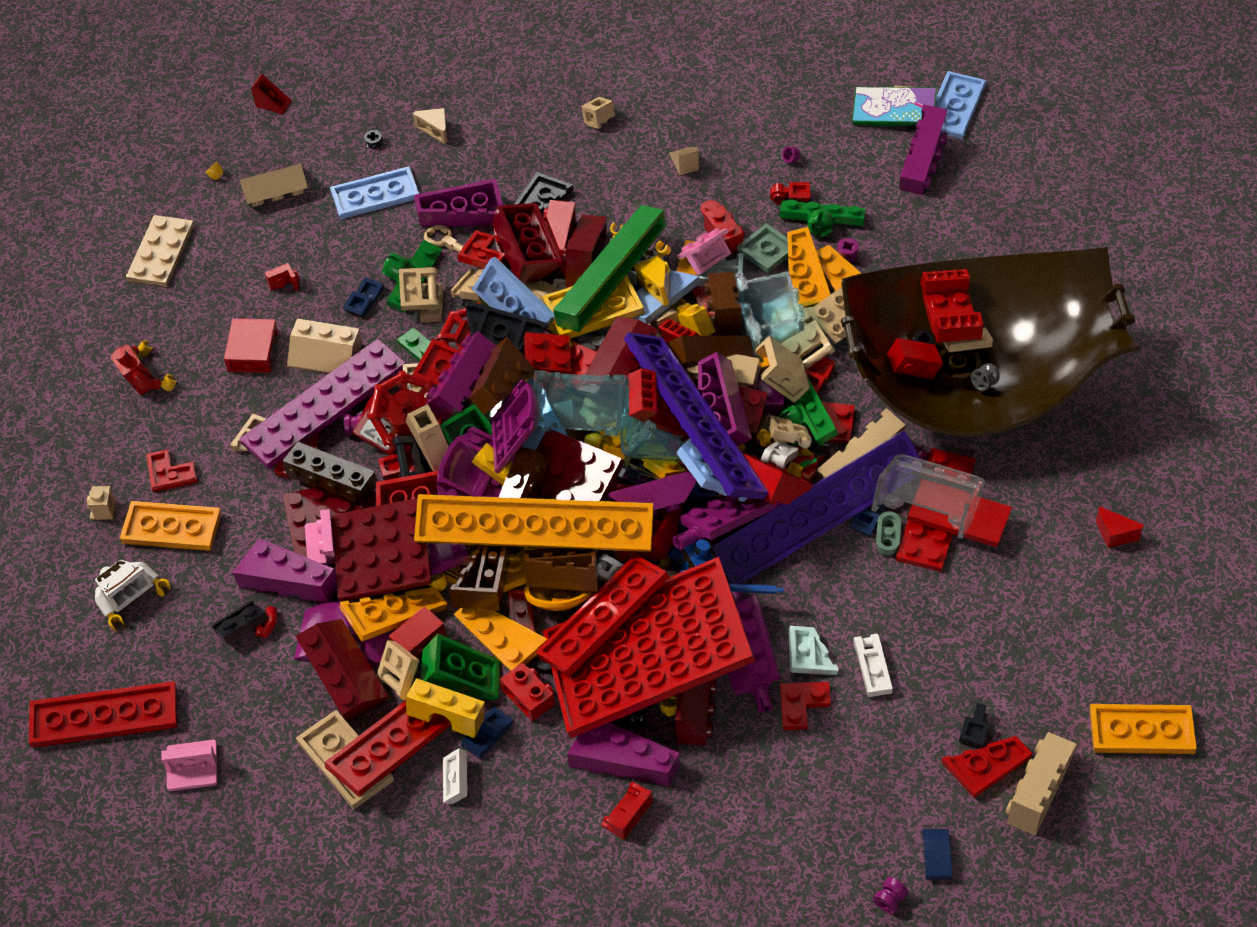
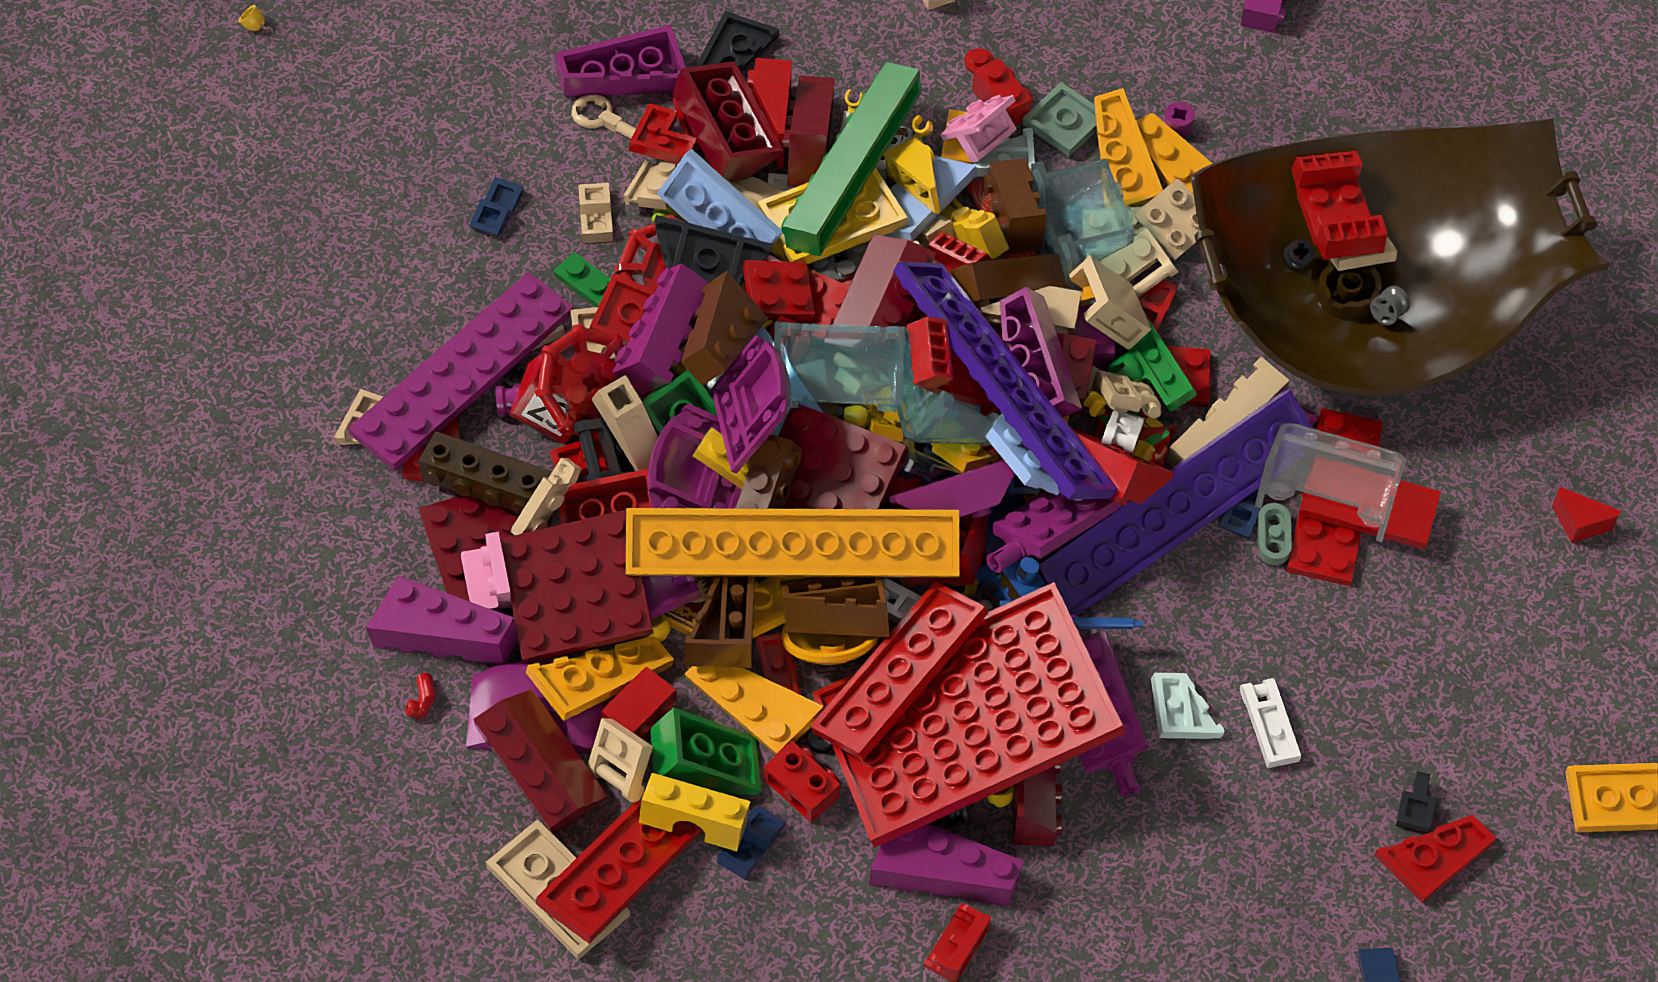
camera: 10 degrees left, 5 degrees up
(101, 503) = (158, 530): tan brick -> none
(102, 714) = (205, 840): red plate -> none
(122, 585) = (209, 651): white torso -> none
(136, 371) = (182, 329): red torso -> none
(160, 251) = (188, 144): tan plate -> none
(165, 476) = (245, 486): red tile -> none
(170, 525) = (263, 559): light orange plate -> none
(191, 765) = (342, 907): bright pink bracket -> none
(239, 622) = (383, 698): black plate -> none
(250, 345) = (343, 285): panel -> none
(274, 185) = (343, 38): tan slope -> none
(281, 276) = (375, 178): red bracket -> none
(322, 345) = (448, 284): tan slope -> none
(367, 487) = (547, 497): none -> tan hinge
(374, 192) = (491, 47): light blue tile -> none
(412, 291) = (568, 195): tan plate -> none
(423, 258) = (559, 171): green plate -> none
(455, 776) = (715, 907): white plate -> none
(796, 191) = (1097, 33): red plate -> none
(798, 697) = (1172, 773): red plate -> none
(821, 216) = (1137, 68): green plate -> none
(914, 358) = (1292, 282): red brick -> none
(1040, 783) = (1511, 880): tan wedge -> none

